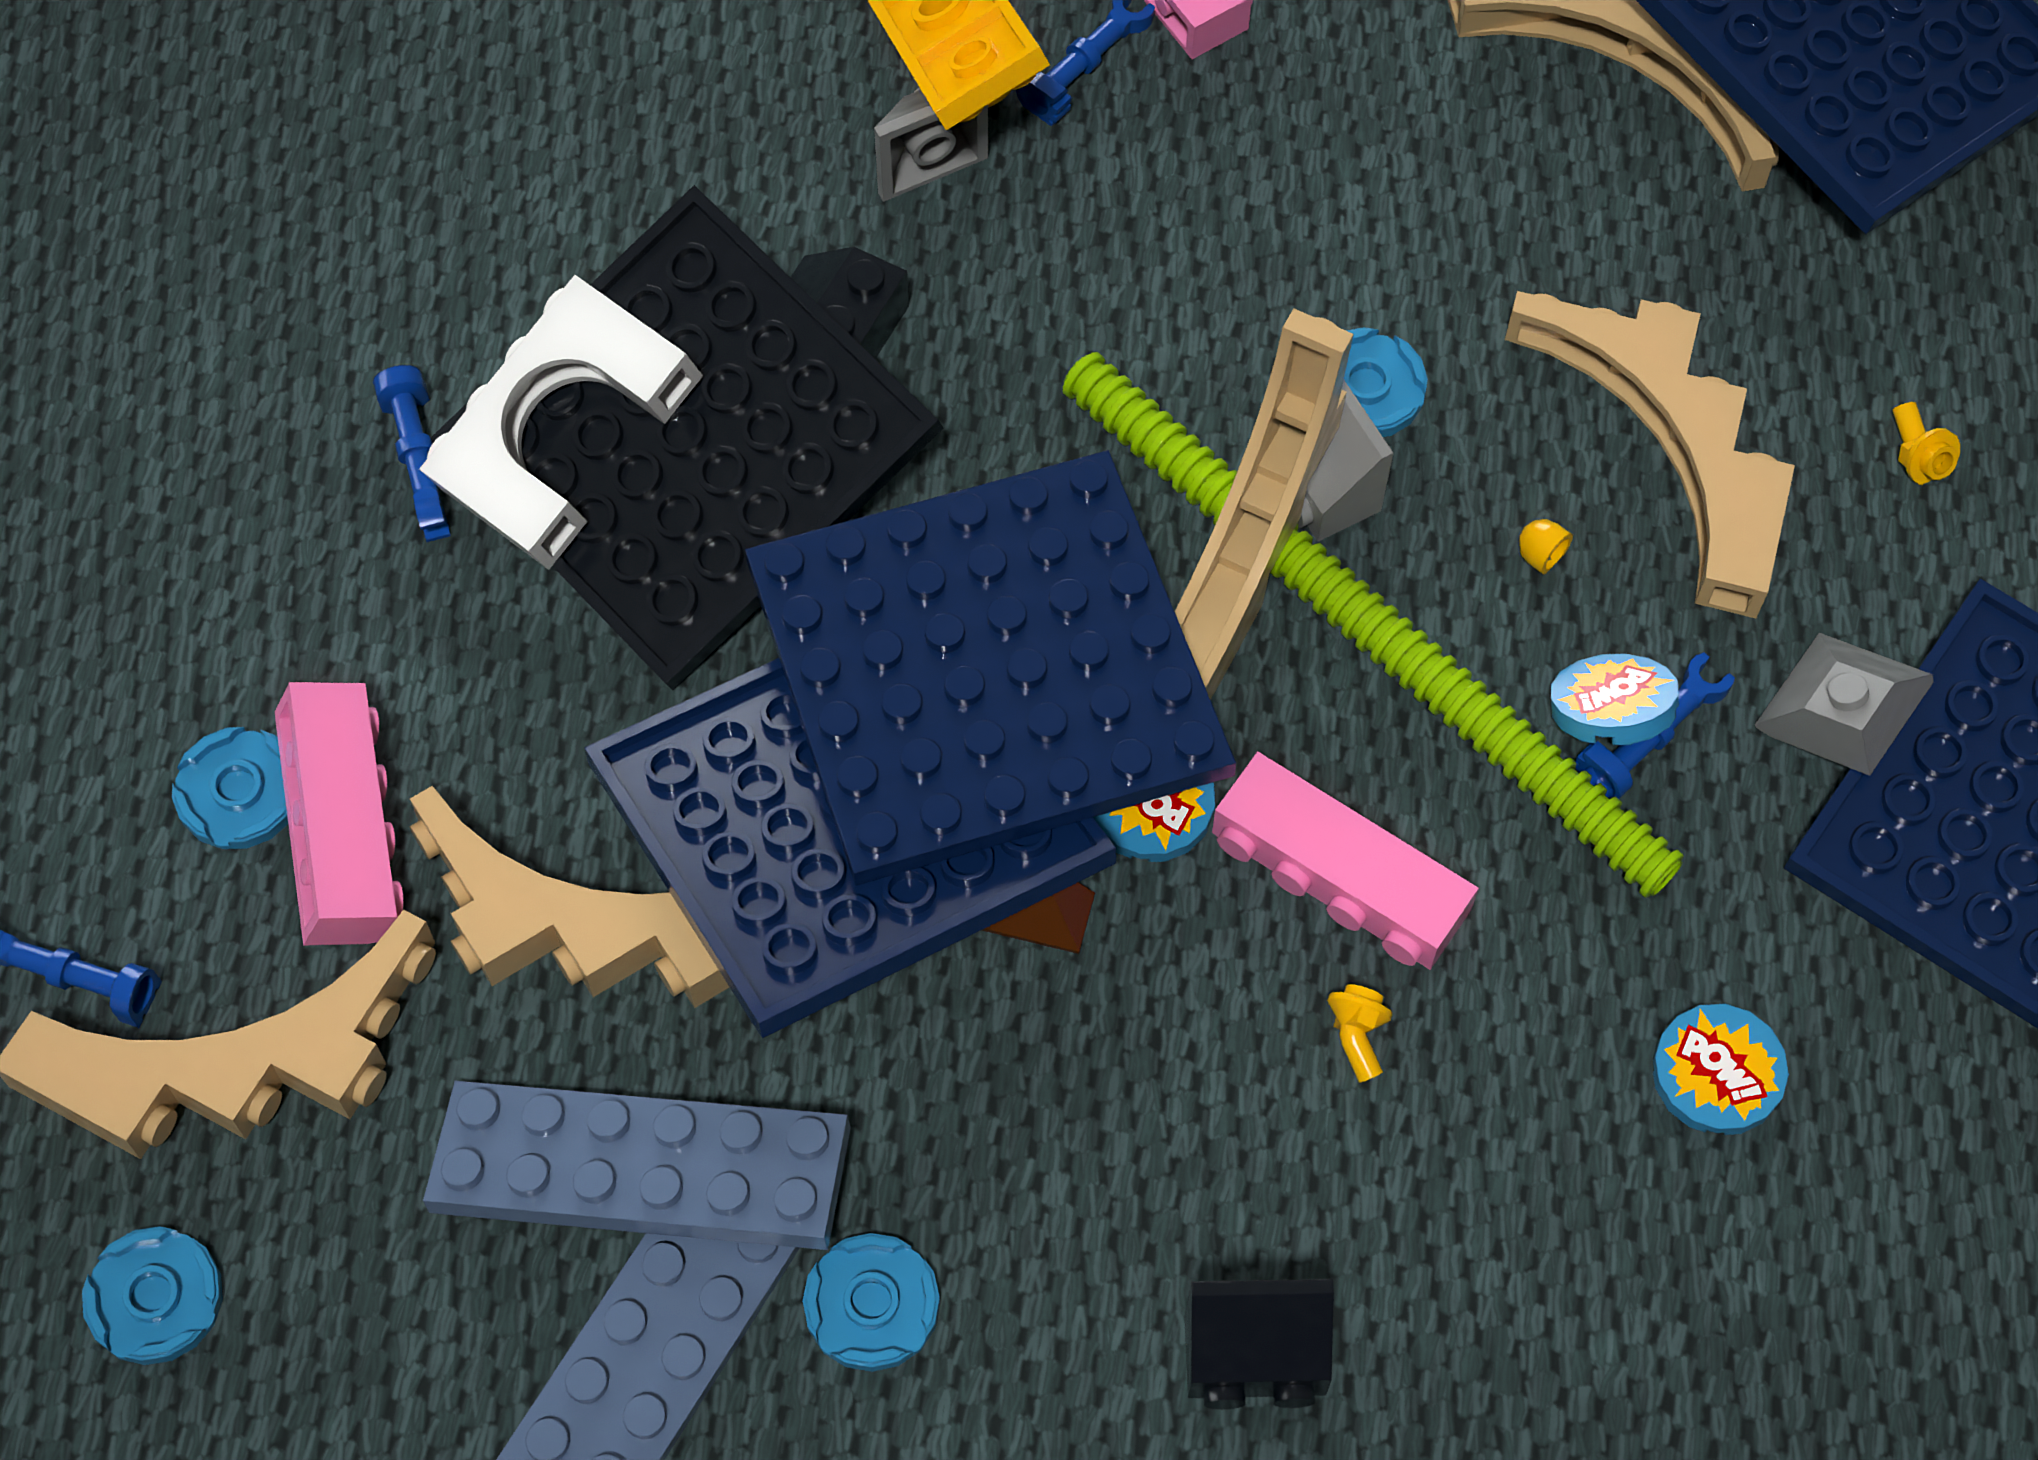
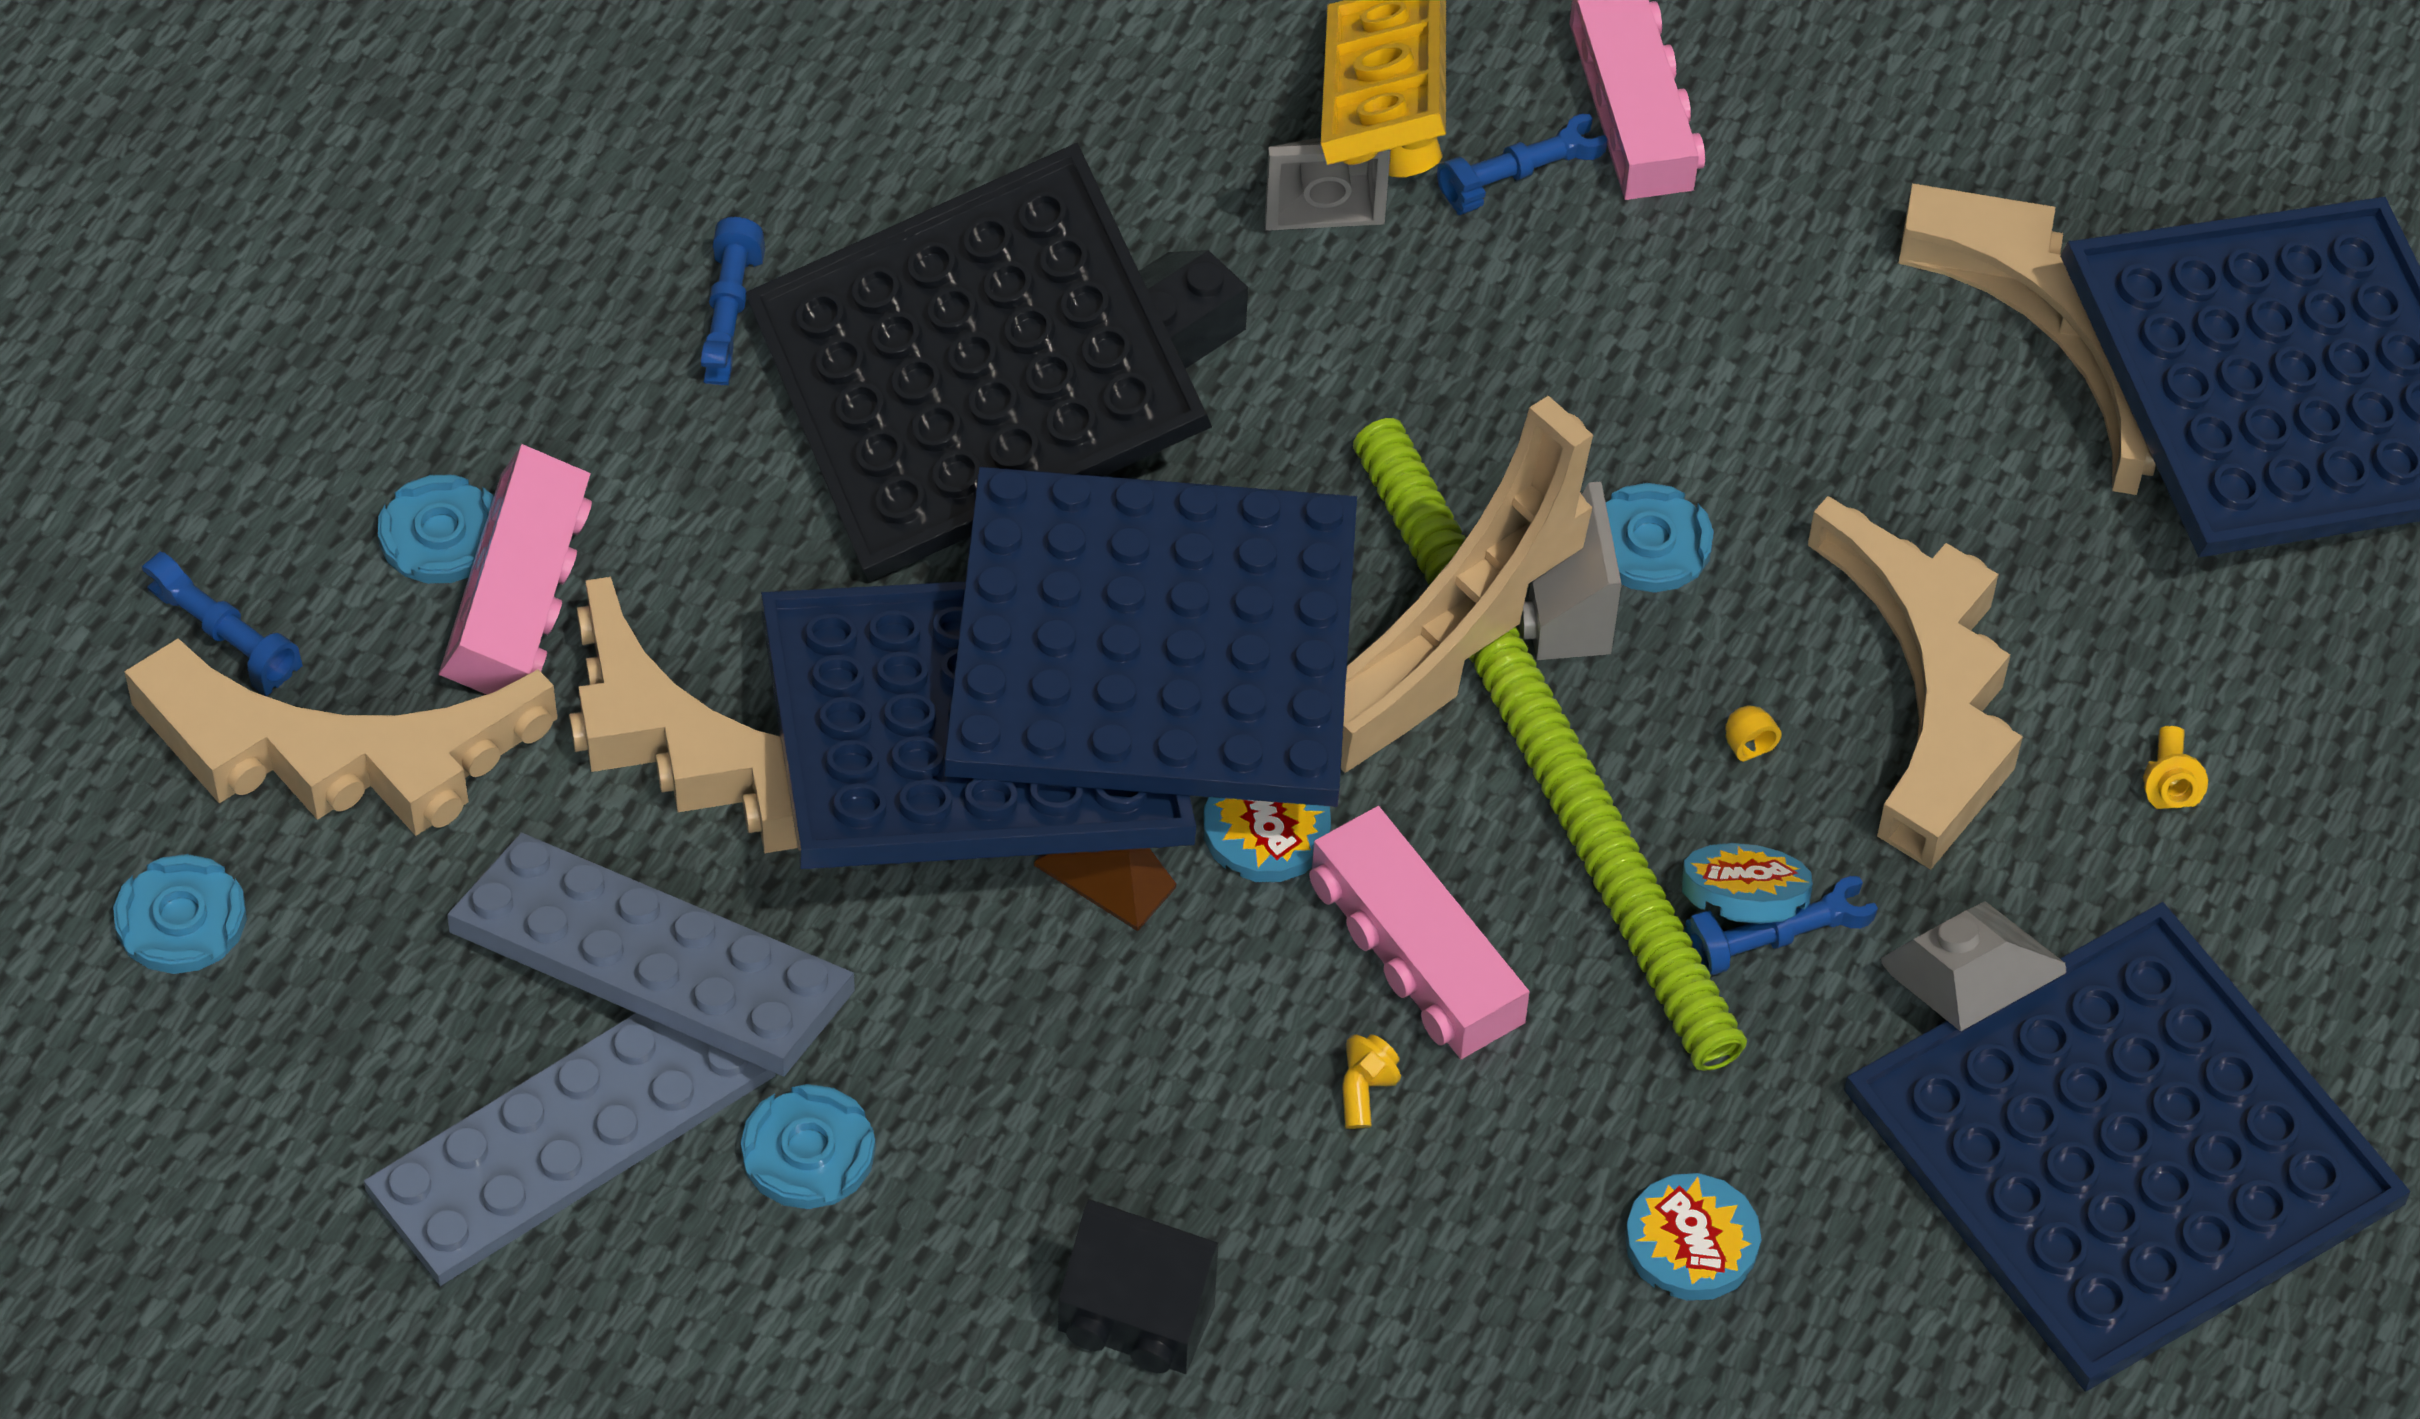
camera: 20 degrees right, 10 degrees down
(573, 341) = (905, 243): white arch -> none

